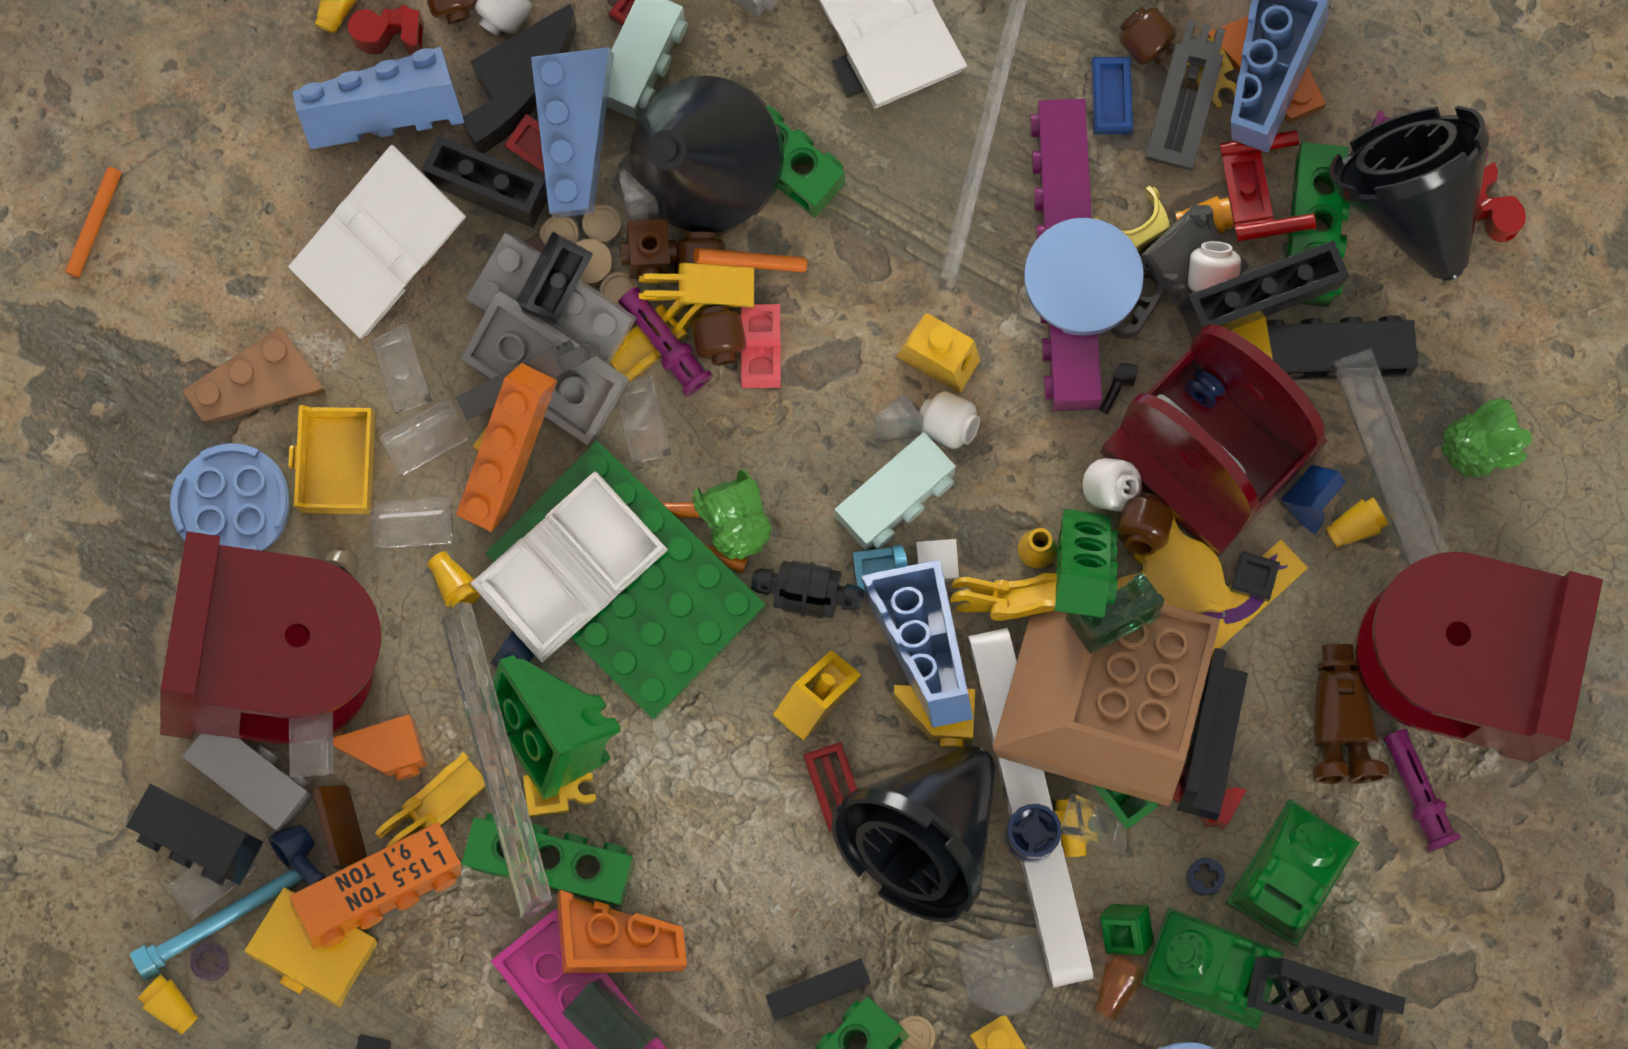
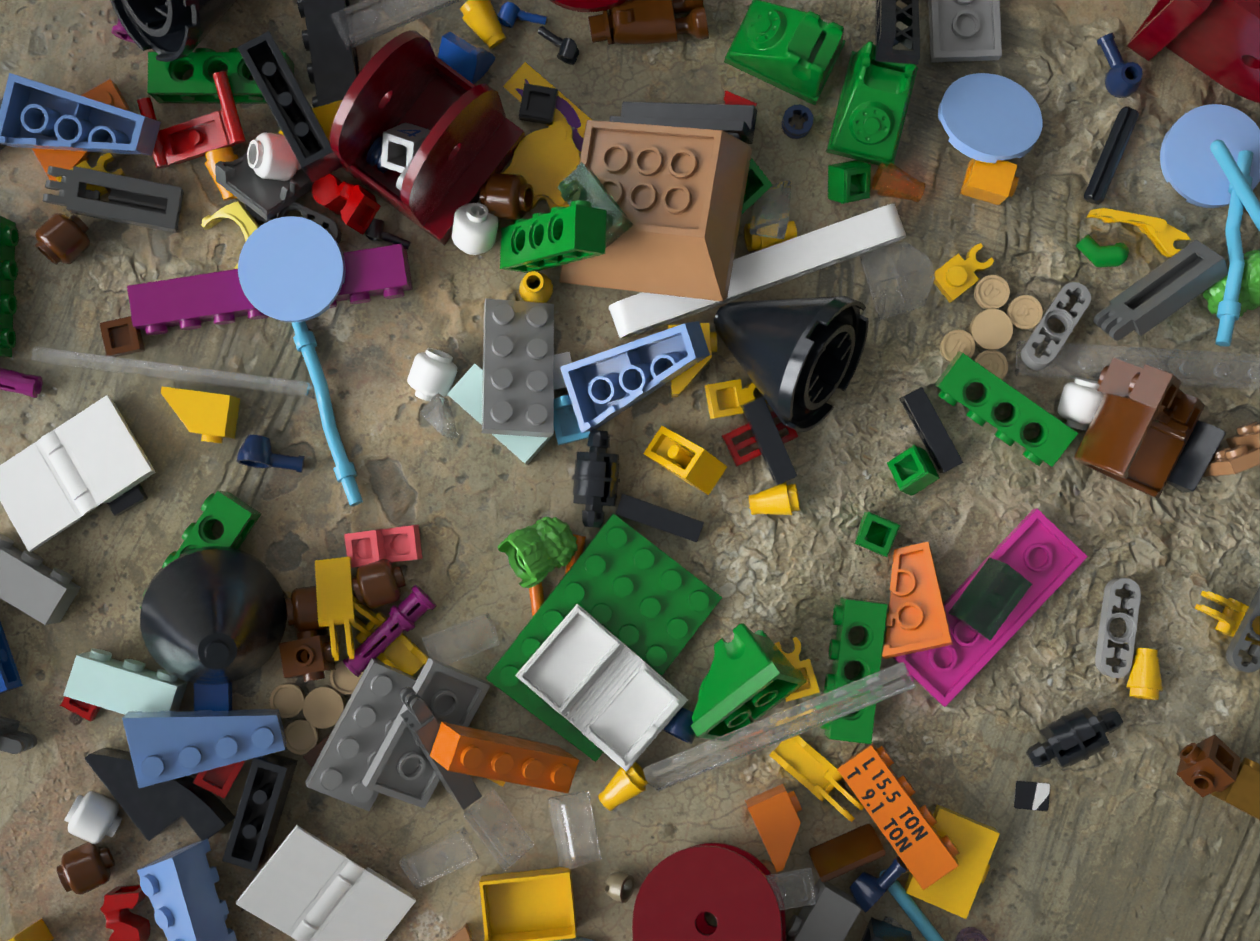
camera: 95 degrees left, 10 degrees up
(554, 277) = (344, 736): black slope -> none
(616, 145) = (213, 697): none -> blue tile
(638, 201) = (264, 671): clear slope -> none
(703, 907) = (876, 534): none -> green slope
(750, 259) = (307, 557): orange bar -> none
(753, 658) = (659, 518): none -> black piece
(757, 795) = (777, 500): none -> yellow cone
(773, 962) = (913, 470): none -> green slope
(824, 791) = (769, 440): none -> black piece
(853, 312) = (344, 470): none -> medium azure bar
(883, 220) = (257, 453): none -> dark blue bar
(883, 752) = (727, 397): none -> yellow plate
(934, 167) = (205, 412): none -> yellow slope
(940, 352) = (372, 389): yellow torso -> none
(944, 514) = (518, 368): none -> light grey plate
(1006, 598) = (583, 305): yellow arm -> none
(1029, 86) = (121, 337): none -> reddish brown plate
(1033, 833) = (789, 260): dark blue wheel -> none
(1112, 95) = (121, 266): blue tile -> none
(1152, 354) = (349, 201): none -> red leg
(1210, 410) = (401, 145): none -> light grey brick
(1314, 617) = (568, 49): none -> black hand
(1364, 554) = (510, 12): none -> blue hand

